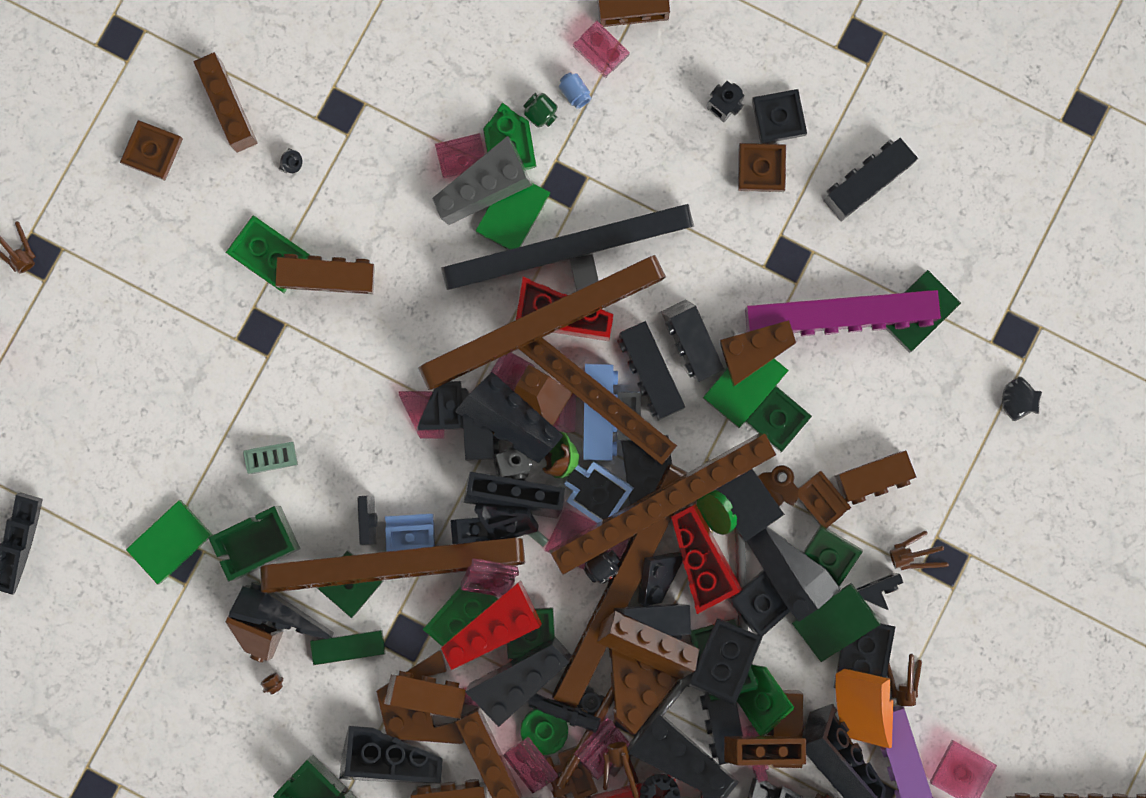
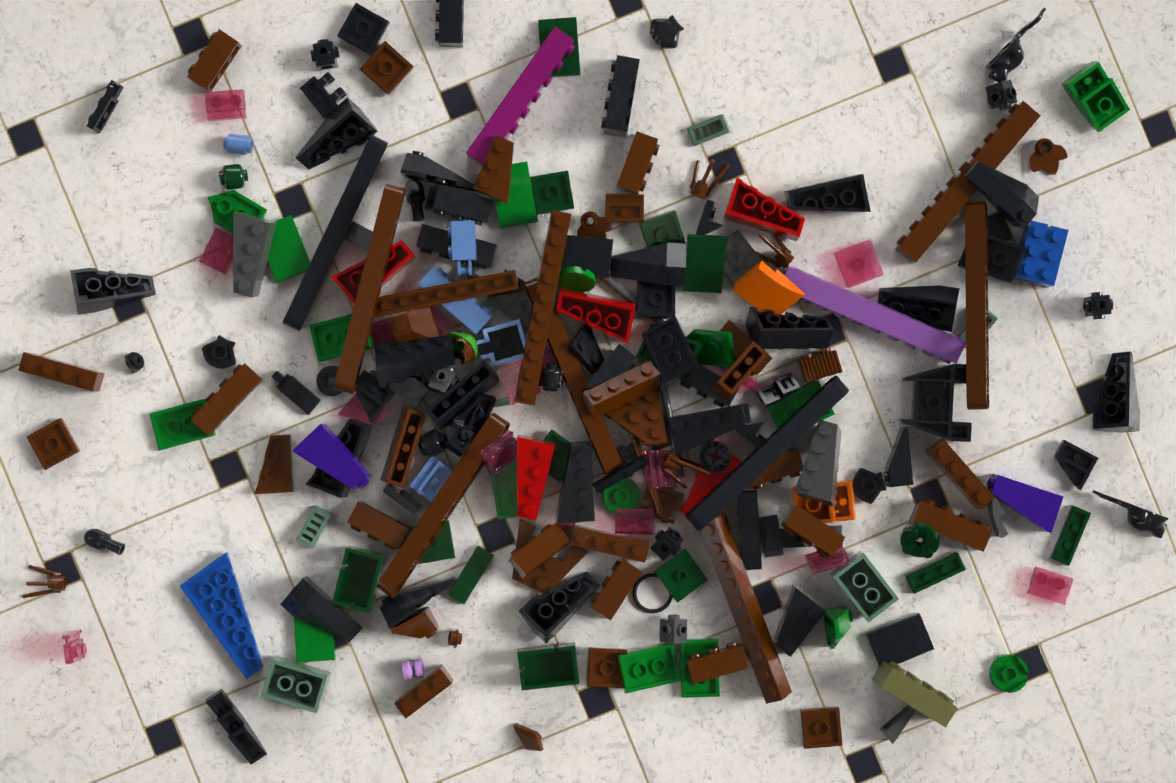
camera: 50 degrees left, 5 degrees up
(95, 270) = (101, 541): none -> black arm
(102, 567) = (296, 684): none -> sand green brick
(122, 433) = (221, 605): none -> blue wing
(192, 521) = (315, 607): none -> black wedge
(195, 697) = (423, 691): none -> reddish brown brick
(209, 668) = (413, 669): none -> lavender wheel
(298, 377) = (277, 467): none -> reddish brown wing
(322, 518) = (378, 525): none -> reddish brown brick
(334, 78) = (104, 290): none -> black wedge
(351, 421) = (333, 457): none -> dark purple slope
(357, 431) = (354, 437): none -> black wedge
(364, 233) = (219, 353): none -> black animal
(387, 335) = (296, 392): none -> black hinge
(417, 479) = (403, 447): none -> reddish brown brick
(418, 350) = (322, 380): none -> black gear
(445, 504) = (433, 443): none -> black head
(464, 324) = (330, 337): none -> green tile
(659, 375) = (463, 244): none -> medium blue brick
(663, 294) = (415, 197): none -> black arm
(667, 173) = (340, 130): none -> black wedge
(682, 127) = (318, 95): none -> black plate
(699, 284) = (426, 170): none -> black wedge
(924, 408) = (621, 96): none -> black wedge
(932, 637) = (761, 212): none -> red wedge
(960, 525) = (724, 123): none -> sand green slope
(1012, 697) = (833, 195): none -> black wedge

